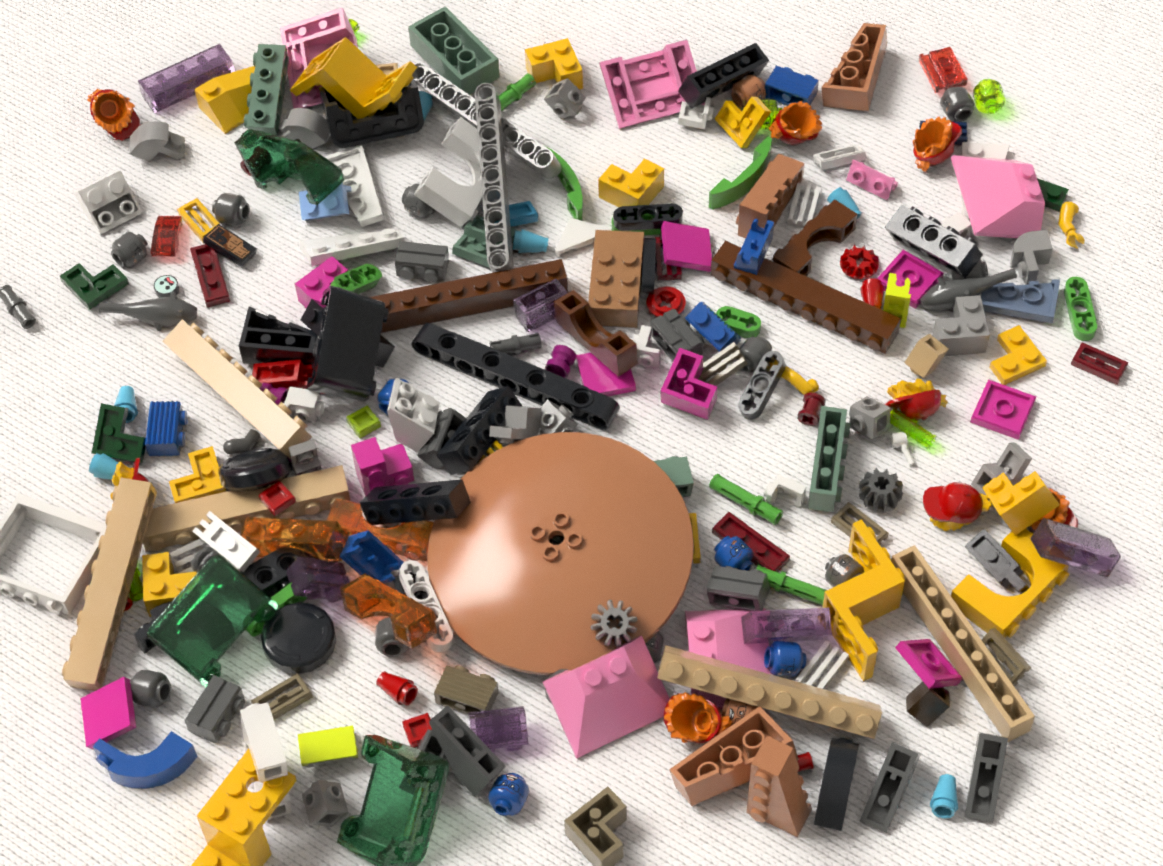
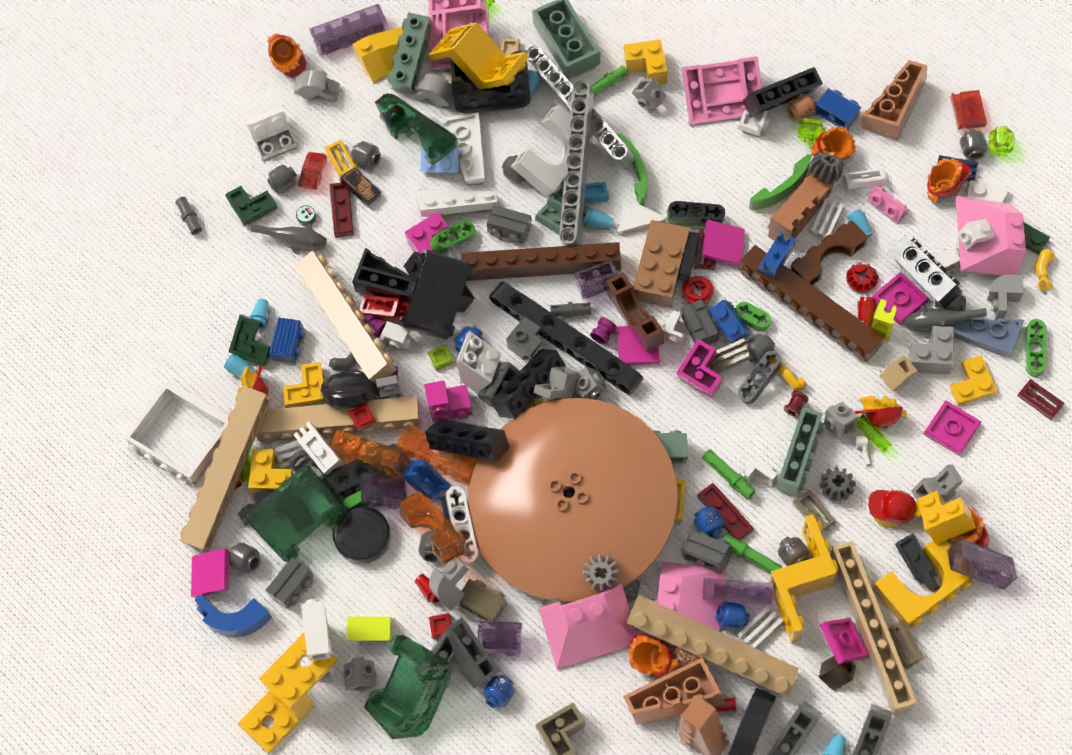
camera: 15 degrees right, 10 degrees up
(288, 700) = (328, 595): dark tan tile -> none
(416, 671) = (444, 583): none -> light grey brick
(465, 383) = (524, 339): none -> dark grey brick
(631, 189) = (686, 185): yellow brick -> none
(743, 124) = (791, 138): yellow plate -> none
(793, 146) = (826, 167): none -> dark grey gear
(983, 188) = (975, 232): none -> white bracket

